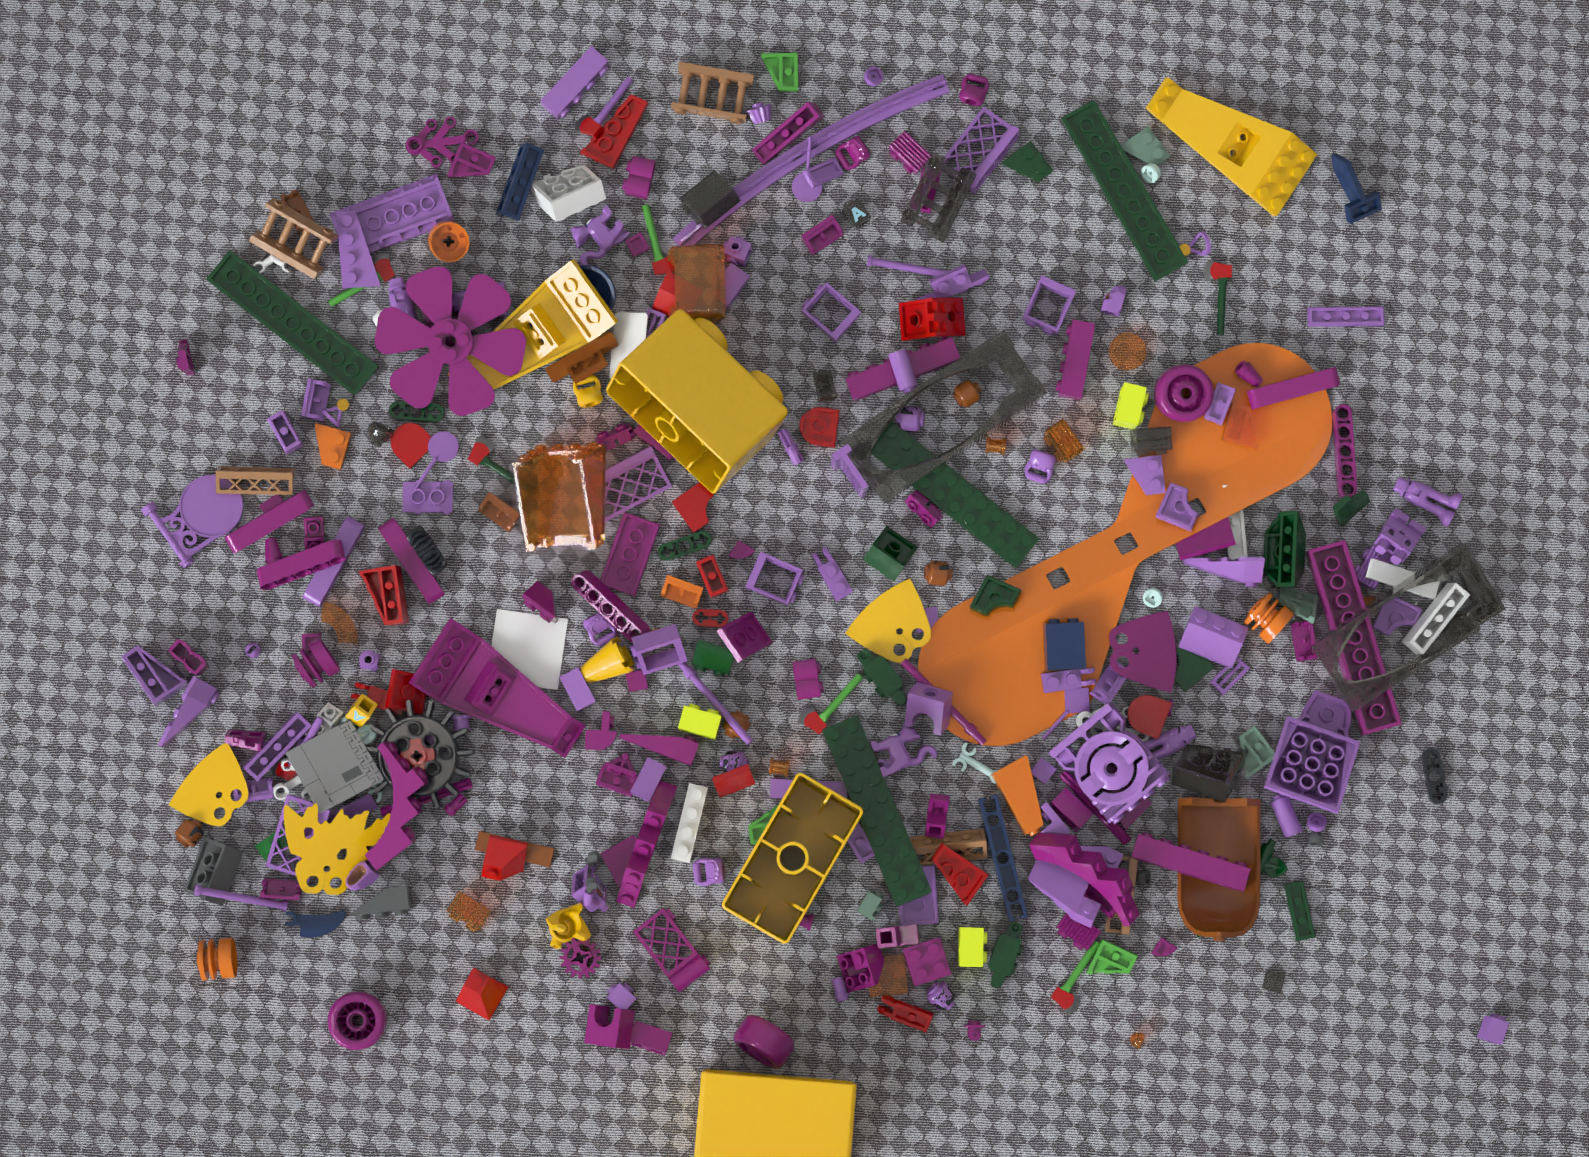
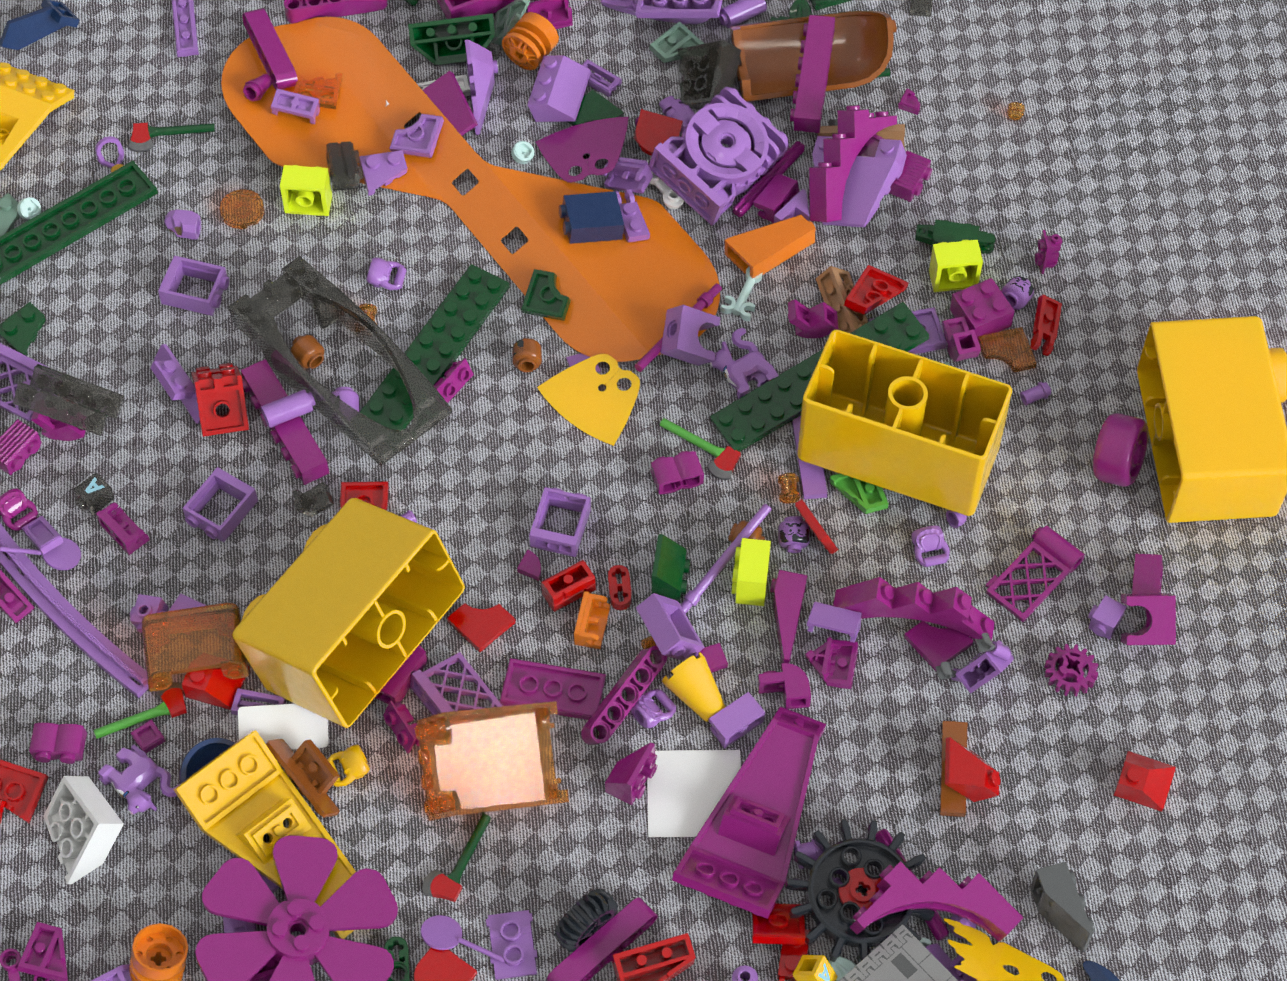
camera: 95 degrees left, 25 degrees down
(342, 1024) = (1230, 900): magenta wheel -> none
(361, 876) = (1034, 944): medium lavender rock -> none
(455, 805) = (914, 845): magenta pin -> none
(469, 911) = (1046, 805): clear orange brick -> none
(499, 512) = (520, 847): dark orange hinge -> none
(519, 181) = (68, 883): dark blue fence -> none
(567, 924) = (1034, 684): yellow piece -> none
(681, 553) = (533, 638): dark green beam -> none
(689, 823) = (854, 568): white brick -> none
(709, 200) = (83, 651): clear smoke brick -> none
(744, 636) = (638, 534): magenta tile -> none
(833, 576) = (545, 465): medium lavender hinge -> none
(842, 459) = (403, 446): medium lavender fence -> none
(861, 967) = (1007, 366): magenta slope -> none
(883, 676) = (660, 394): dark green hinge -> none
(890, 553) = (511, 406): dark green slope -> none
(904, 266) = (152, 474): medium lavender bar -> none
(999, 843) = (846, 253): dark blue piece -> none
(1043, 771) = (736, 227): medium lavender tile -> none
(1062, 995) = (985, 186): piece -> none
(1063, 441) = (354, 253): clear orange brick -> none
(1075, 702) = (654, 210): medium lavender piece -> none
(1076, 359) = (254, 251): magenta brick -> none
(1111, 959) = (934, 143): bright green wing -> none
(1168, 393) = (286, 135): magenta wheel -> none

